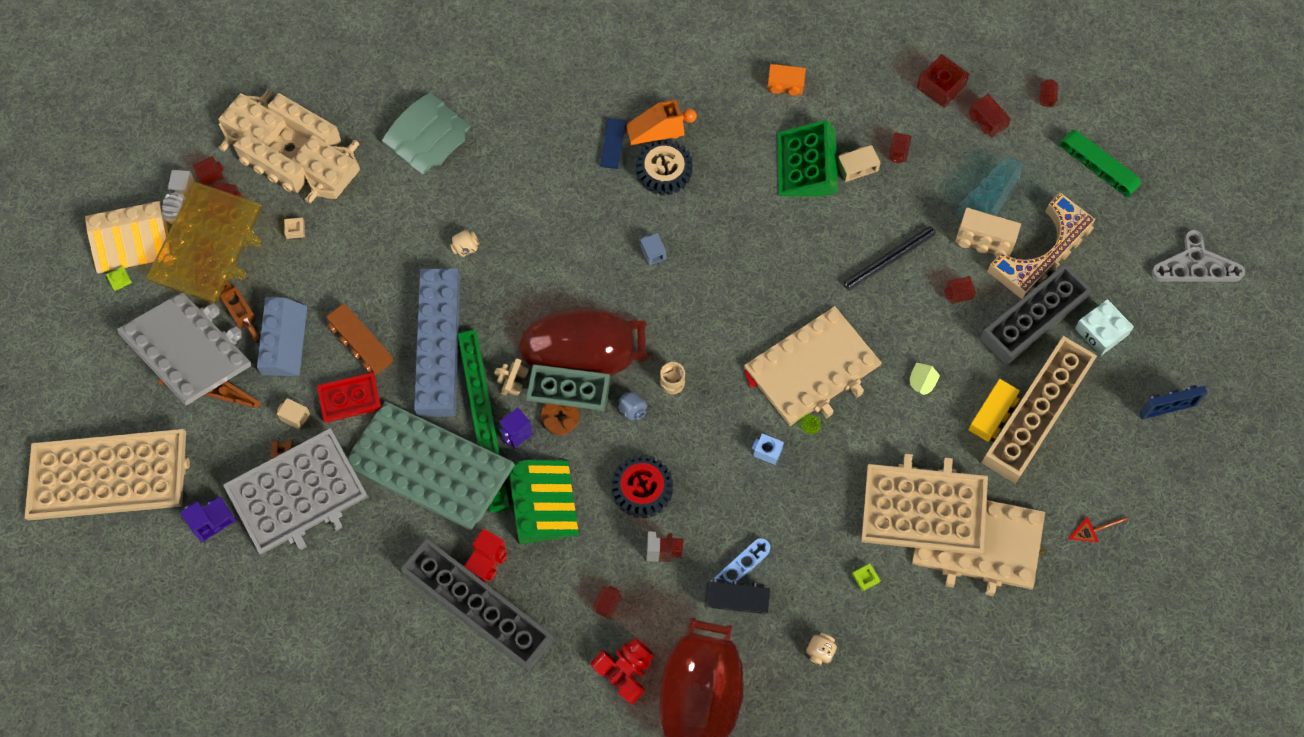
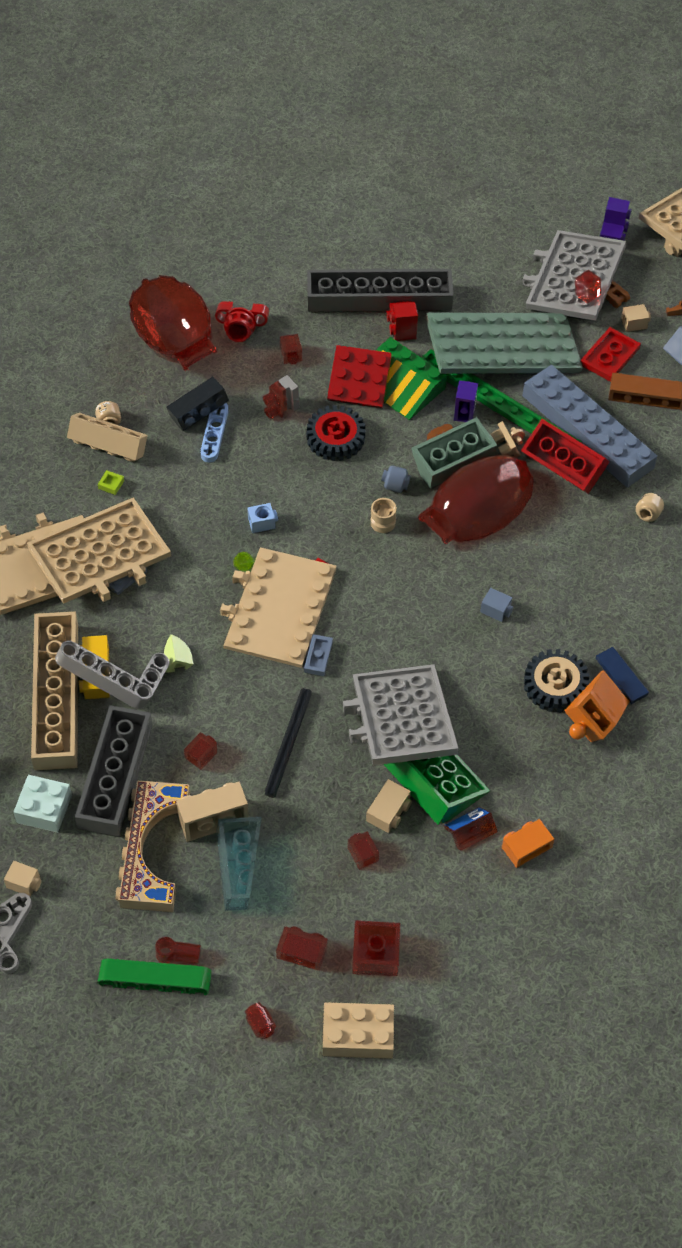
camera: 140 degrees right, 10 degrees down
(311, 453) = (587, 286): none -> clear red brick
(488, 321) = (565, 456): none -> red brick
(577, 523) = (359, 376): none -> red plate
(799, 207) = (401, 715): none -> light grey hinge
(810, 114) = (471, 828): none -> clear red panel
(816, 305) = (318, 655): none -> sand blue plate
(840, 622) = (107, 436): none -> tan brick
(968, 363) = (114, 676): none -> light grey beam
(991, 46) = (358, 1030): none -> tan brick
(1074, 167) = (180, 952): none -> clear red piece
(1151, 284) = (22, 878): none -> tan brick

